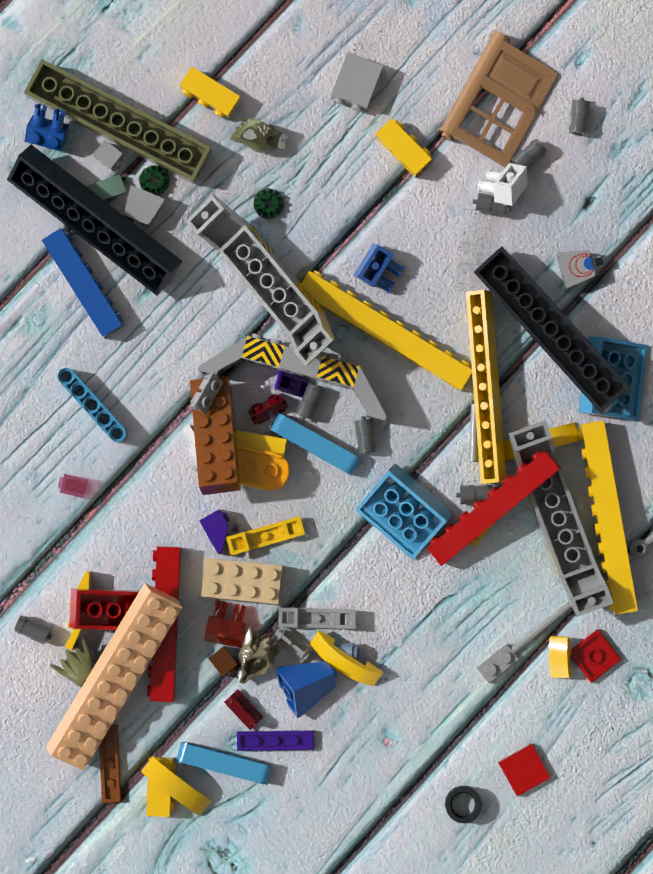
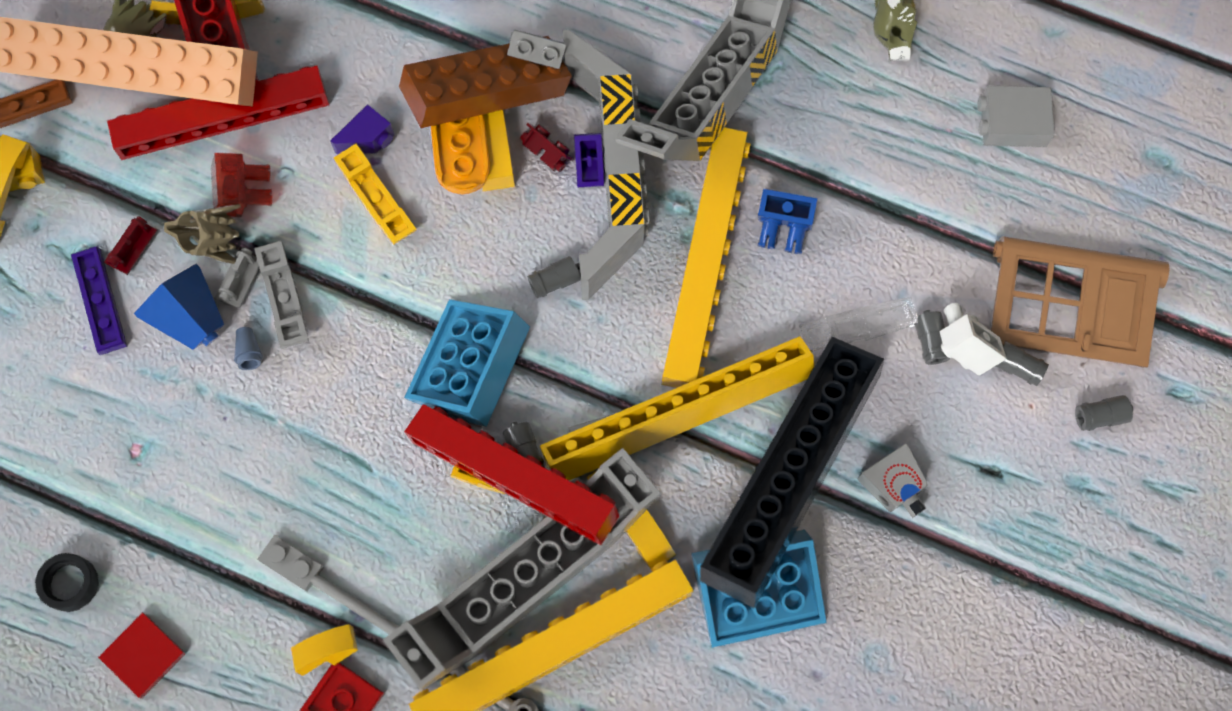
camera: 65 degrees right, 15 degrees down
(224, 662) = (188, 195): reddish brown brick -> none
(224, 763) = (48, 243): dark azure beam -> none
(241, 581) = (304, 185): tan brick -> none
(270, 212) = (803, 68): dark green gear -> none
(308, 405) = (573, 193): dark grey piece -> none
(315, 444) = (519, 219): dark azure beam -> none
(342, 662) = (227, 349): yellow slope -> none
(403, 147) = (959, 200): yellow brick -> none

